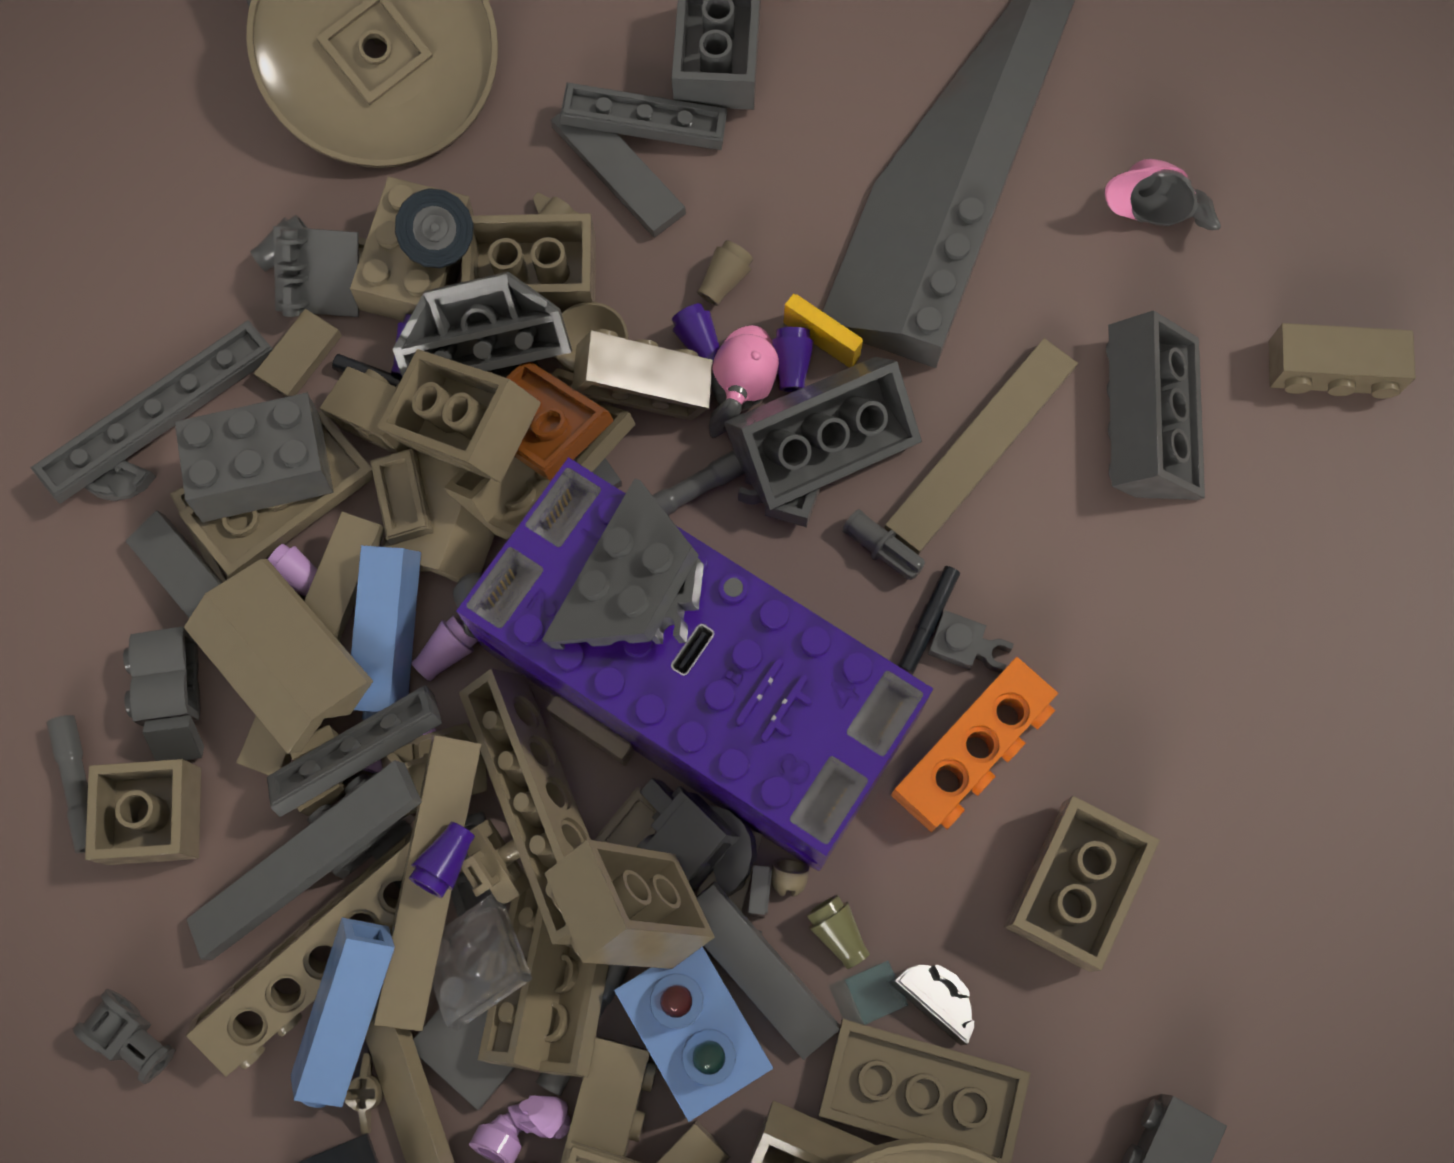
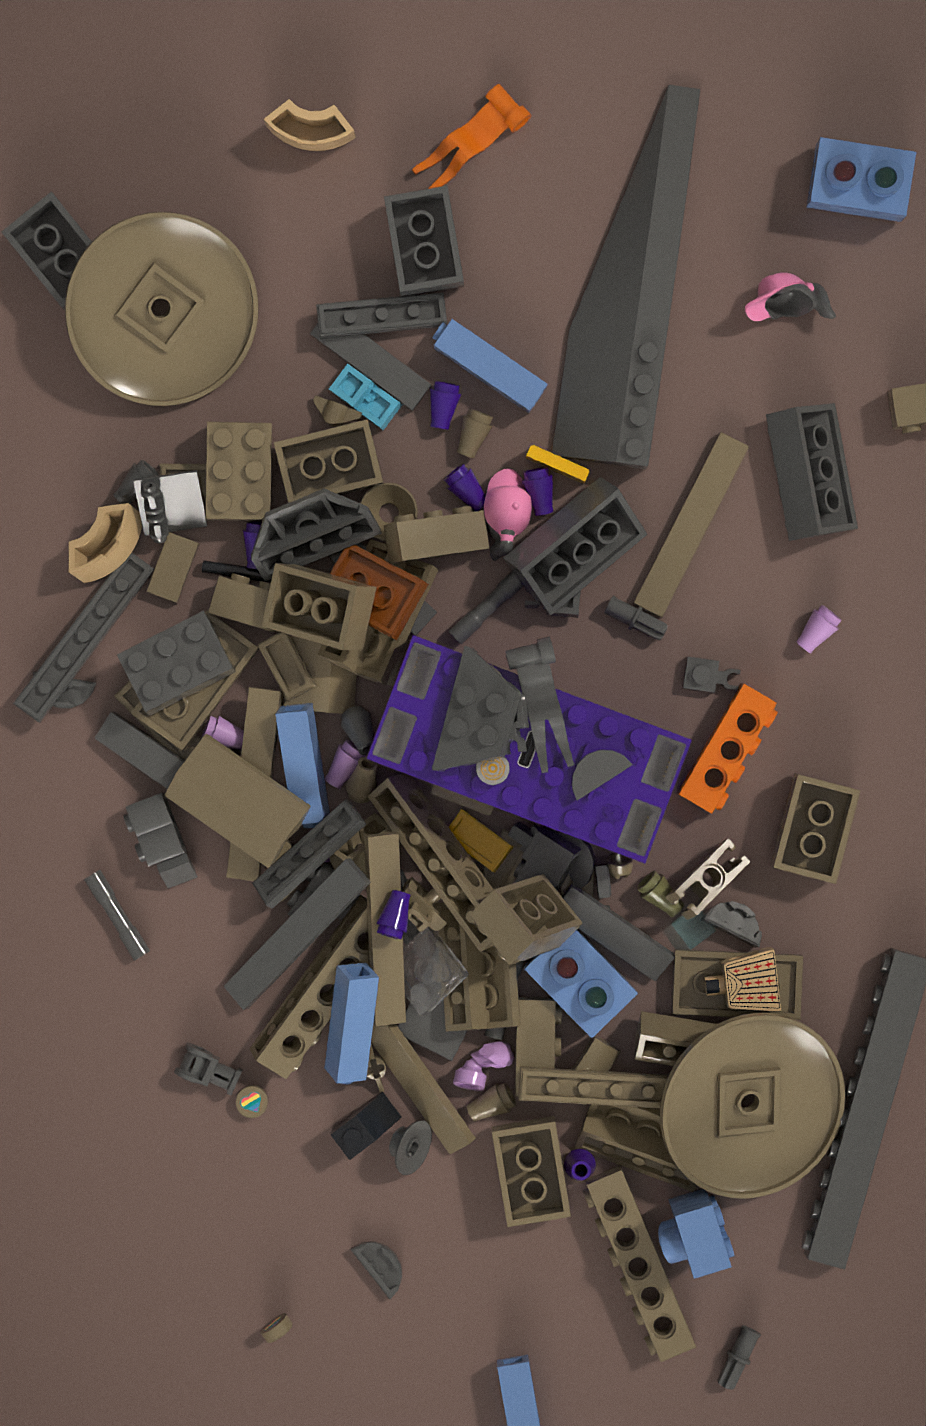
camera: 15 degrees left, 15 degrees up
(143, 812) = (176, 925): dark tan brick -> none
(174, 1101) = (252, 1101): none -> dark tan tile
(217, 299) = (106, 543): none -> tan brick
(434, 228) = (259, 465): black wheel -> none
(459, 670) = (362, 781): none -> dark tan cone
(591, 193) = (365, 397): none -> medium azure slope
(600, 795) = (480, 840): none -> yellow tile
(631, 662) = (493, 771): none -> light grey tile
(695, 230) = (443, 403): none -> dark purple cone
(726, 574) = (540, 694): none -> dark grey flag
(764, 199) = (489, 365): none -> medium blue brick
(784, 697) = (596, 770): none -> dark grey tile
(898, 932) = (719, 876): none -> piece
(929, 619) = (678, 664): black piece -> none
(942, 1091) = (748, 981): none -> tan torso
(1133, 610) = (818, 628): none -> lavender cone
(1278, 79) = (861, 179): none -> medium blue piece

